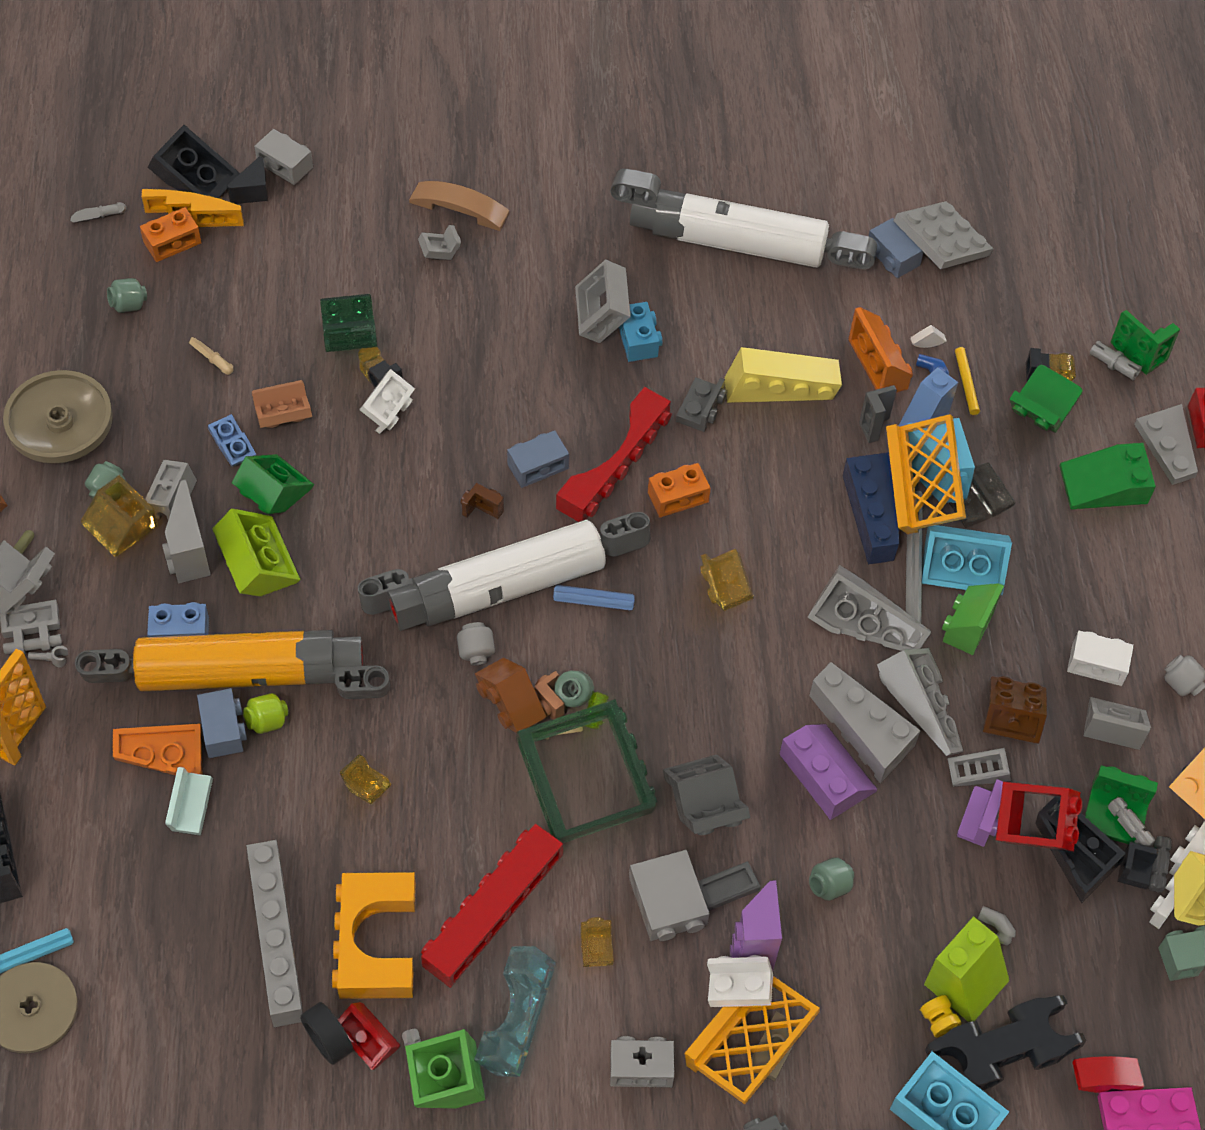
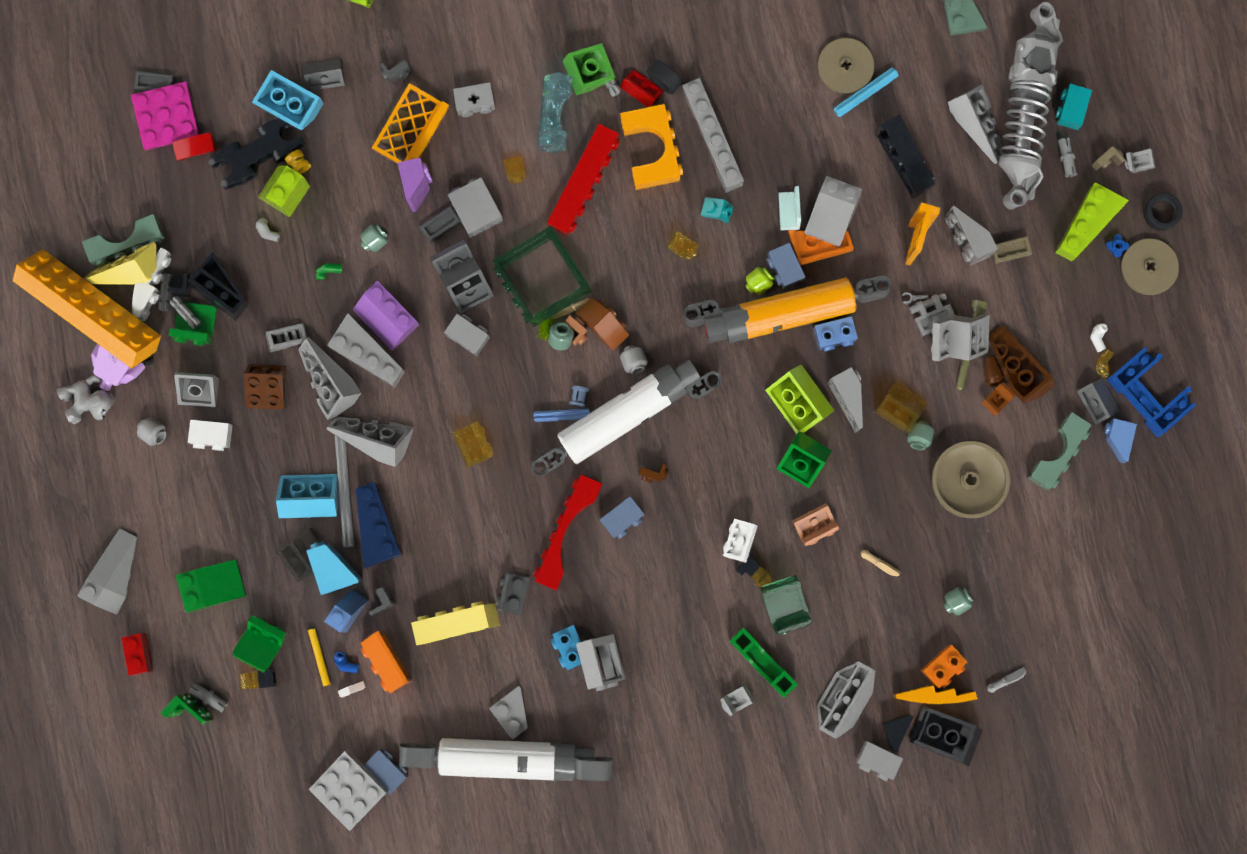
camera: 175 degrees right, 25 degrees up
(125, 784) = (833, 211): none -> light grey slope
(165, 486) = (873, 437): light grey hinge -> none
(231, 440) = (843, 491): medium blue slope -> none
(299, 825) = (717, 209): none -> teal bracket
(308, 219) = (845, 699): none -> light grey wedge
(409, 290) = (763, 663): none -> green arch
(460, 199) = (732, 748): medium nougat slope -> none
(567, 619) = (578, 396): none -> sand blue bush
(678, 489) = (517, 512): orange brick -> none
(711, 716) = (466, 334): none -> light grey brick
(727, 283) = (511, 713): none -> light grey wing
(740, 981) = (421, 147): white bracket -> none
(903, 479) = (357, 542): light orange fence -> none
(917, 849) = (327, 268): none -> green arm
(971, 616) = (299, 445): bright green slope -> none
(980, 815) = (281, 301): medium lavender bracket -> none
(1012, 809) = (255, 309): red window -> none
(1169, 442) = (165, 631): light grey wing -> none

